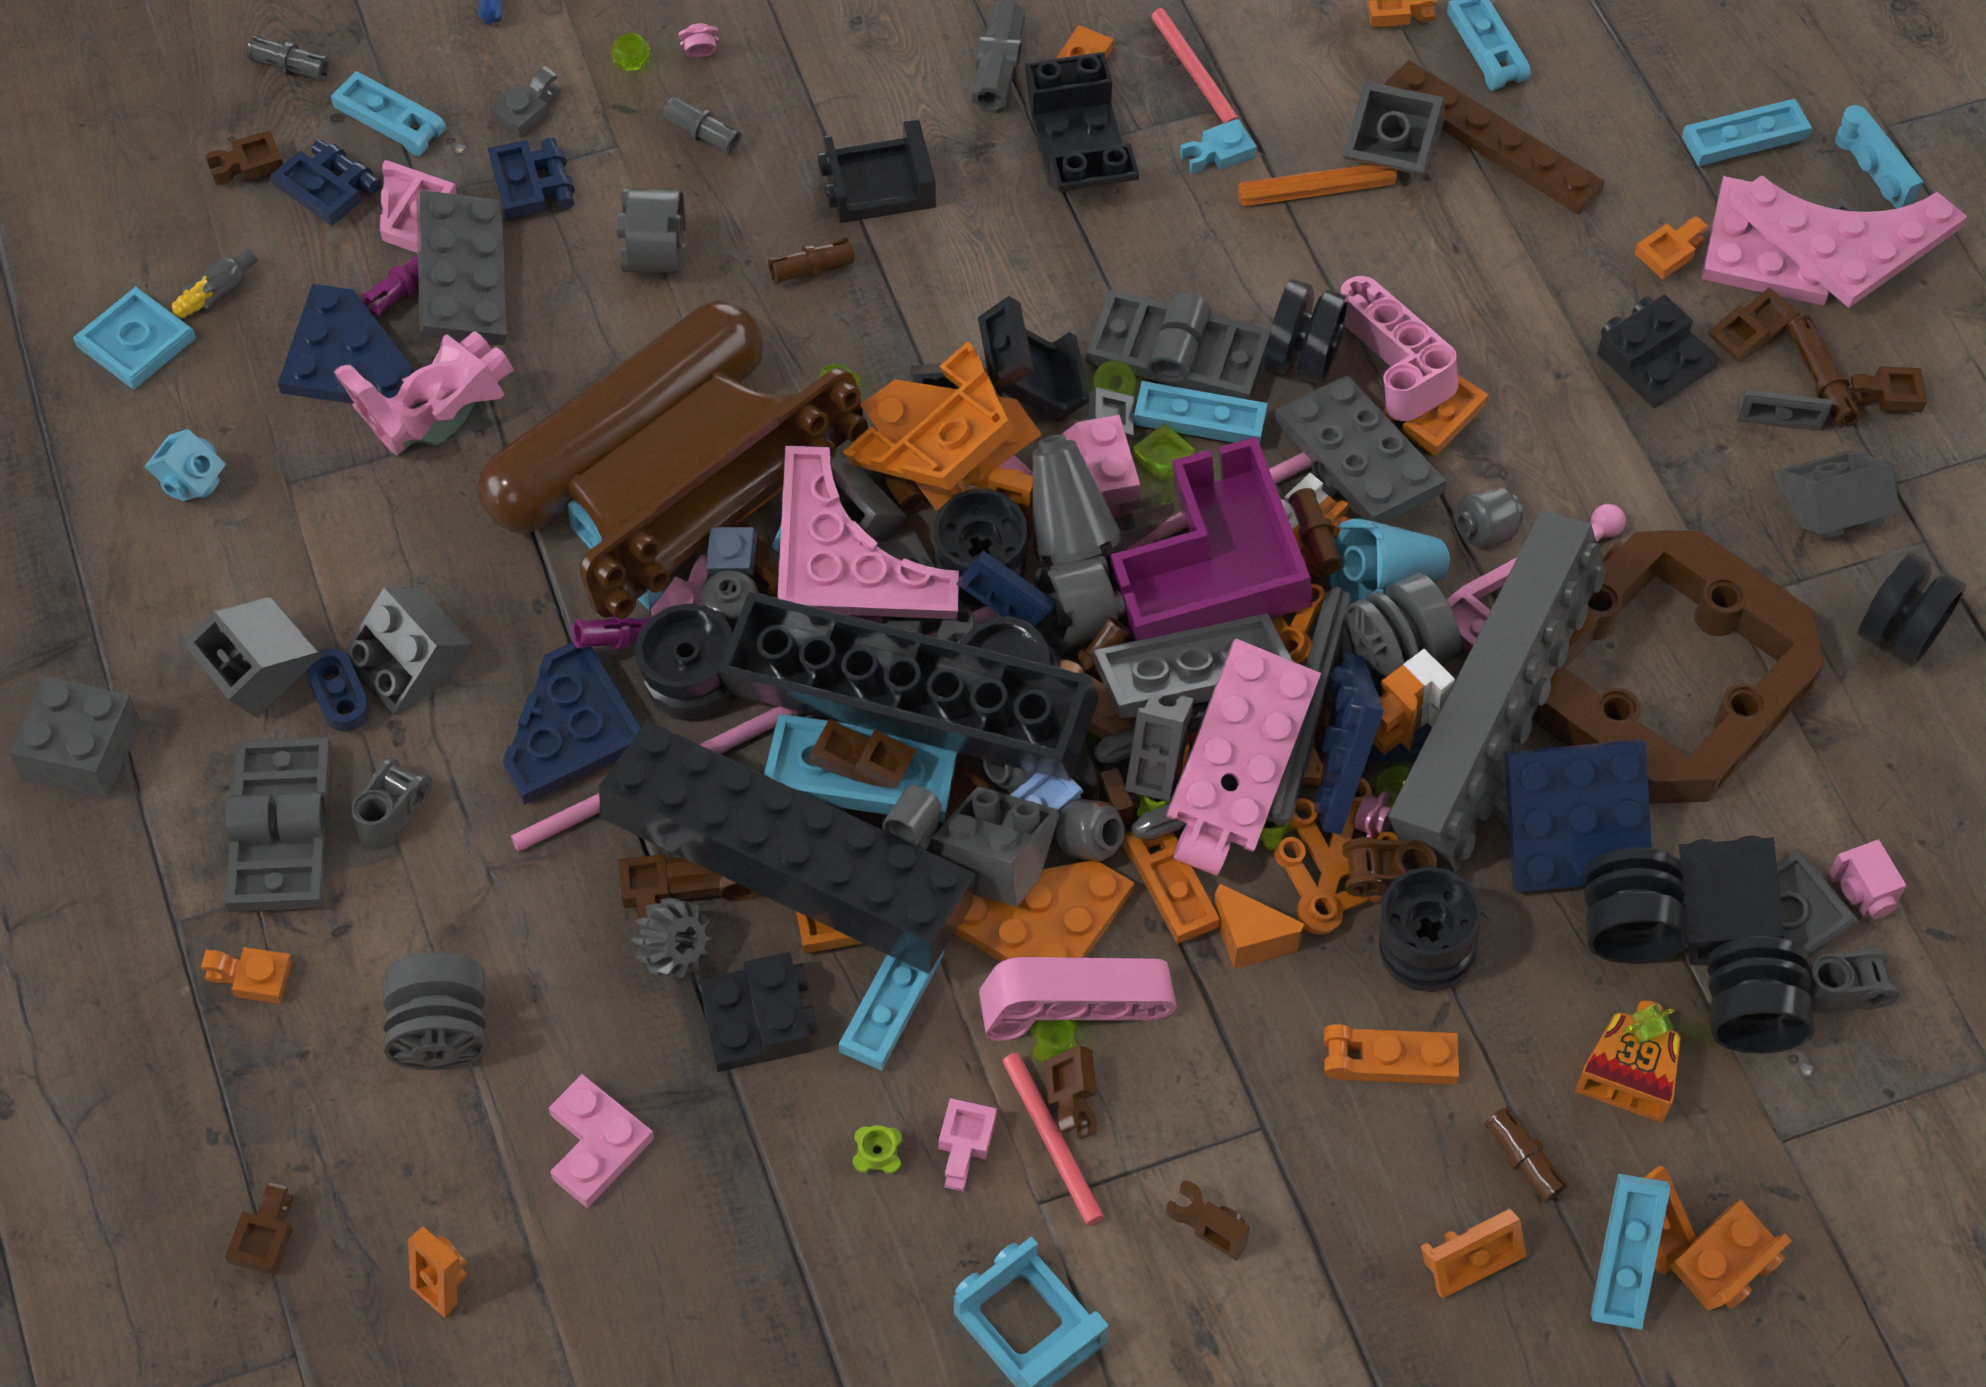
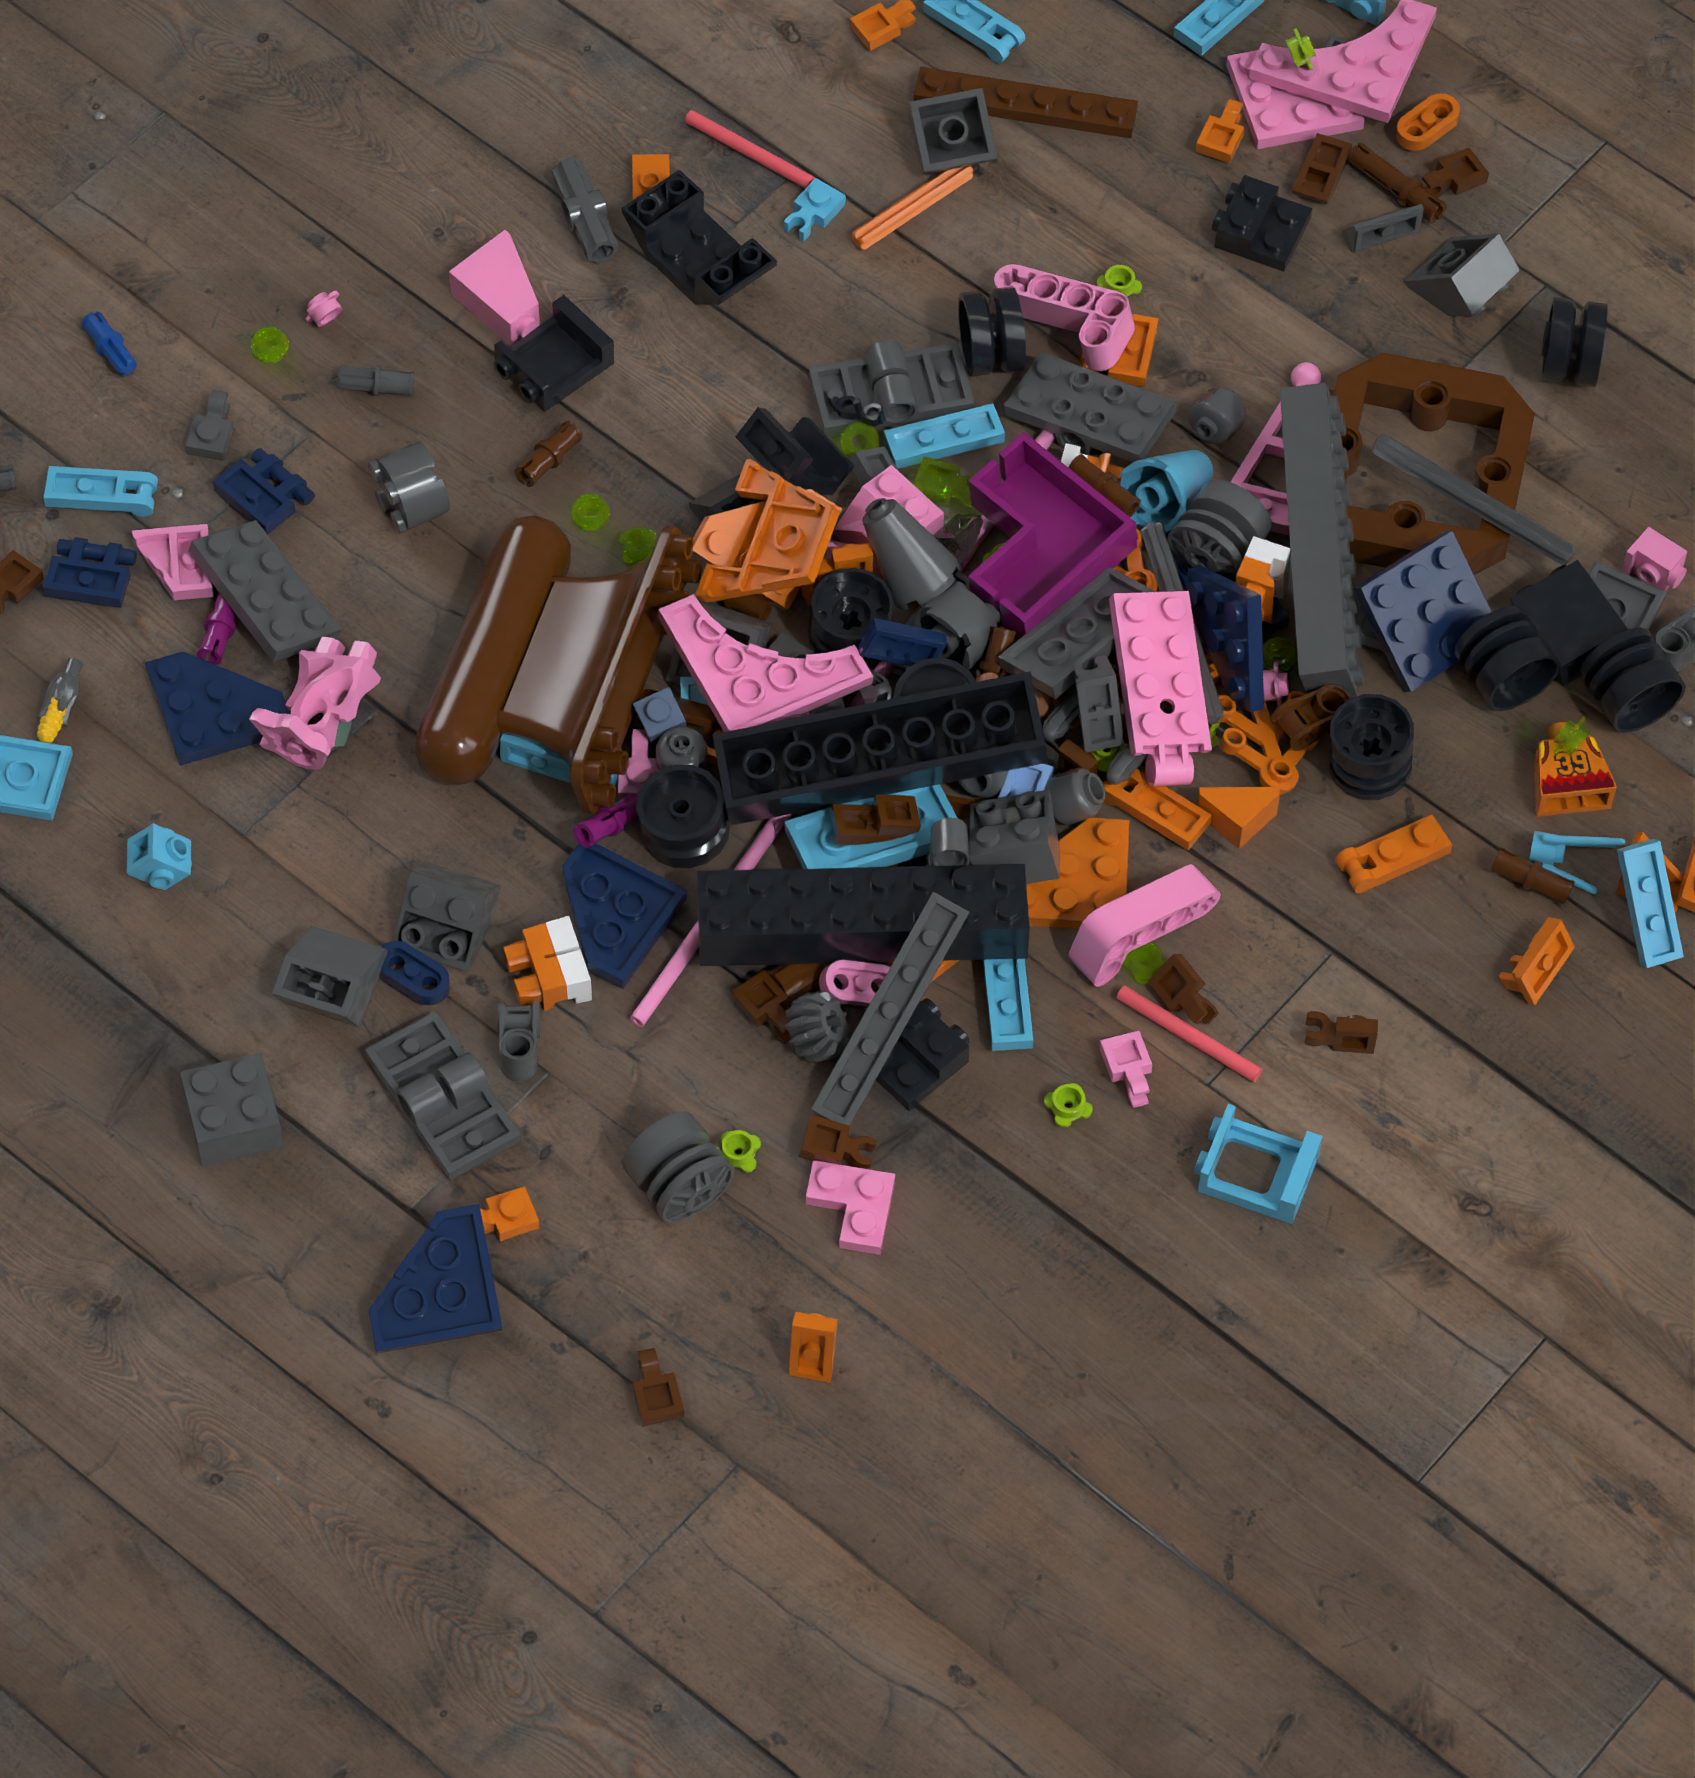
camera: 30 degrees left, 0 degrees up
(133, 1013) = (440, 1287): none -> dark blue plate
(471, 747) = (554, 962): none -> orange hips
(513, 1013) = (740, 1140): none -> lime plate
(610, 1064) = (829, 1143): none -> reddish brown plate
(743, 957) = (890, 1010): none -> dark grey plate
(745, 915) = (855, 980): none -> bright pink plate
(810, 324) = (590, 504): none -> clear neon green plate
(869, 88) = (497, 289): none -> bright pink slope
(1121, 345) = (851, 408): none -> black piece
(1470, 337) = (1123, 276): none -> lime plate
(1565, 1134) = (1551, 849): none -> medium azure plant
(1700, 724) = (1473, 499): none -> dark grey axle
(1792, 194) = (1300, 49): none -> lime plate
(1888, 328) = (1425, 125): none -> orange plate

